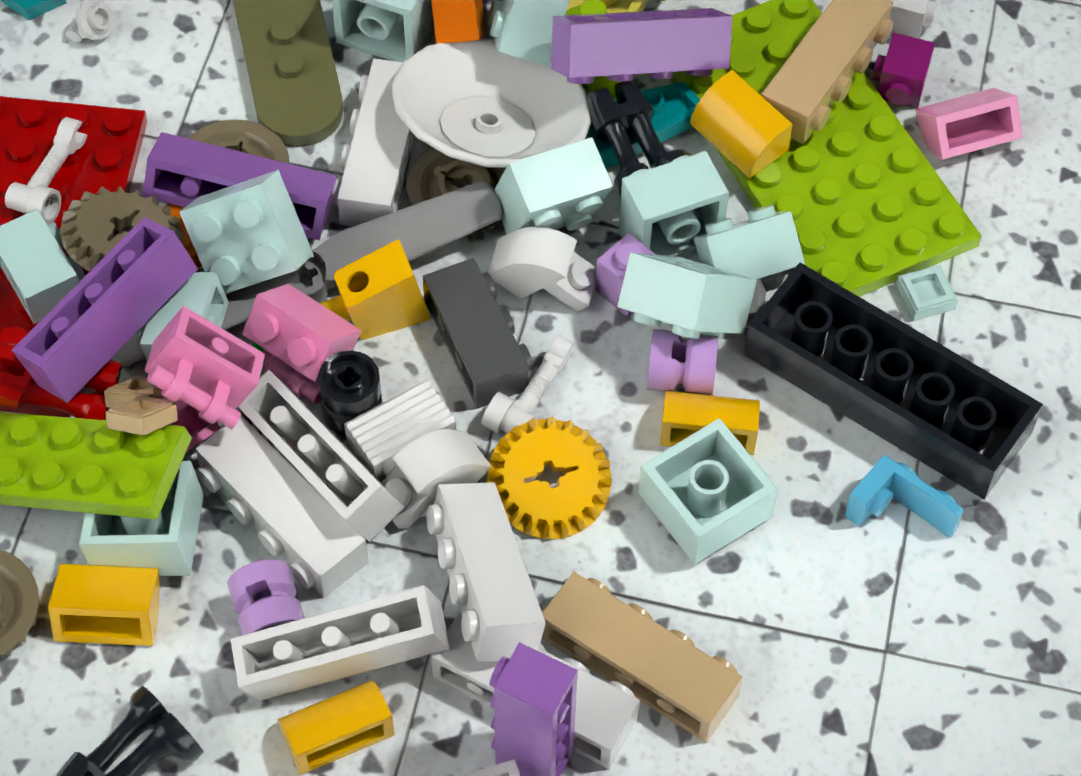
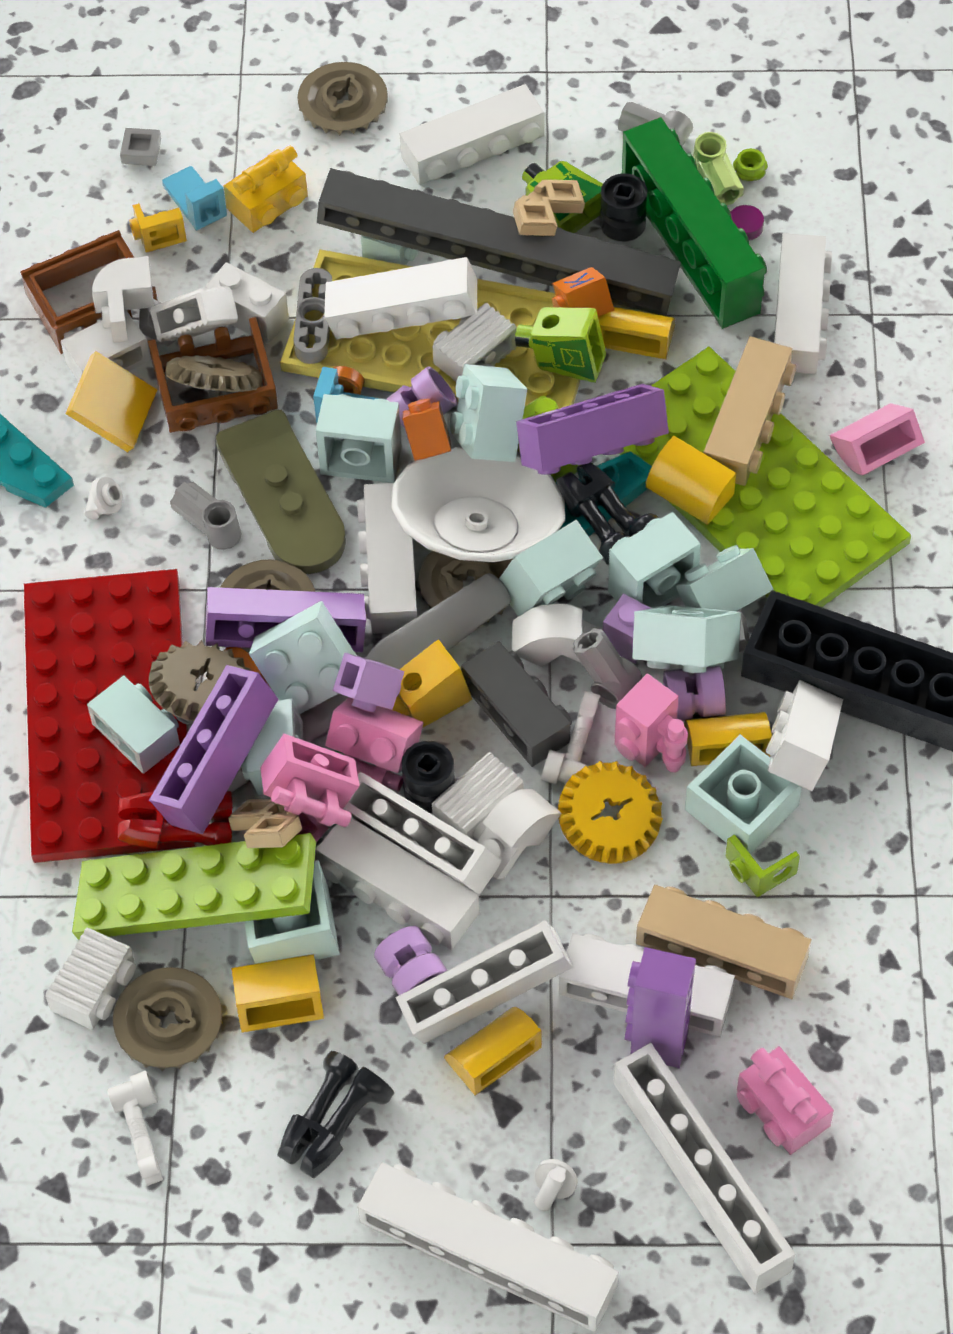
camera: 10 degrees left, 0 degrees up
(37, 193) = (111, 664): white brick -> none
(197, 60) = (209, 515): none -> light grey piece
(305, 271) = (368, 682): none -> lavender brick
(485, 570) = (584, 899): white brick -> none
(593, 321) = (611, 673): none -> light grey piece
(618, 386) = (650, 725): none -> bright pink brick
(705, 594) = (747, 870): none -> lime bracket
(793, 434) = (803, 734): none -> white brick
(900, 482) = (897, 757): medium azure bracket -> none
(903, 70) = (812, 403): magenta brick -> none
(926, 292) = (877, 592): light aqua tile -> none

